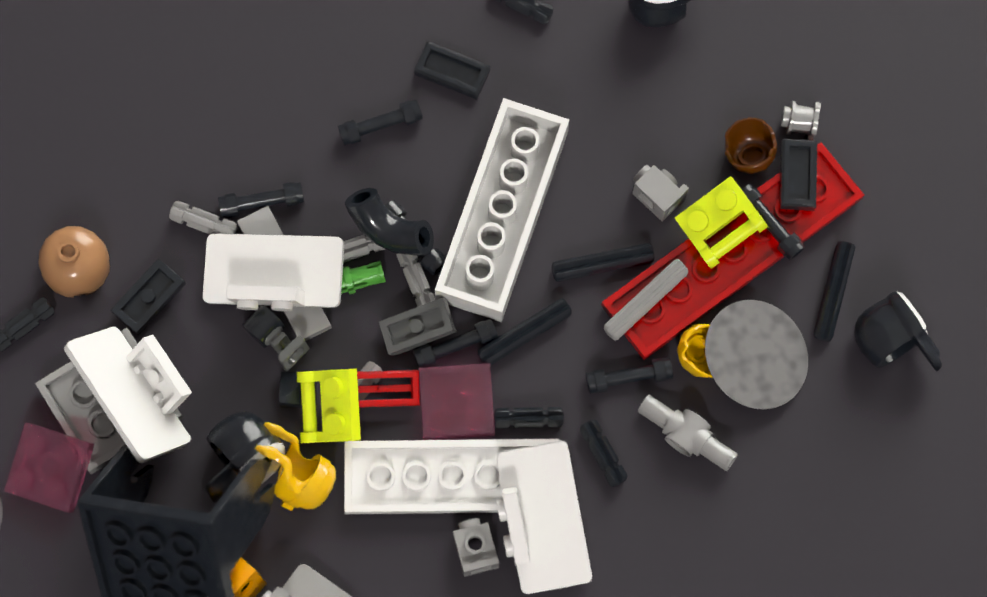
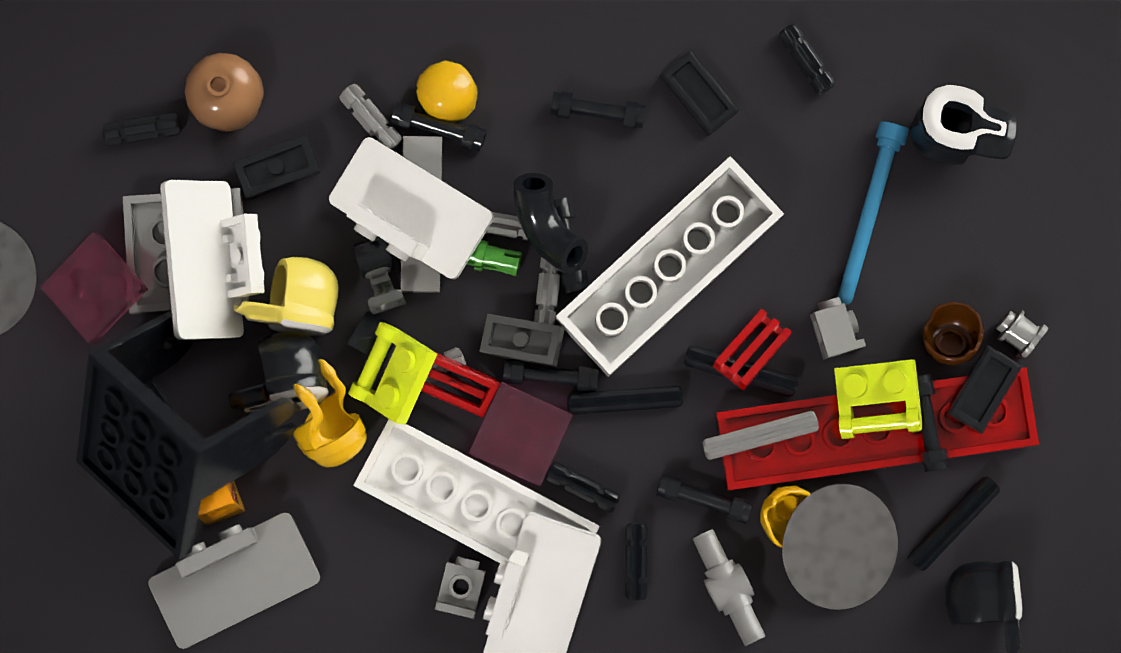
camera: 25 degrees right, 10 degrees up
(221, 387) = (300, 298): none -> light yellow piece
(253, 169) = (447, 91): none -> yellow hair
(606, 217) = (770, 327): none -> red tile
(619, 27) = (890, 139): none -> dark azure piece

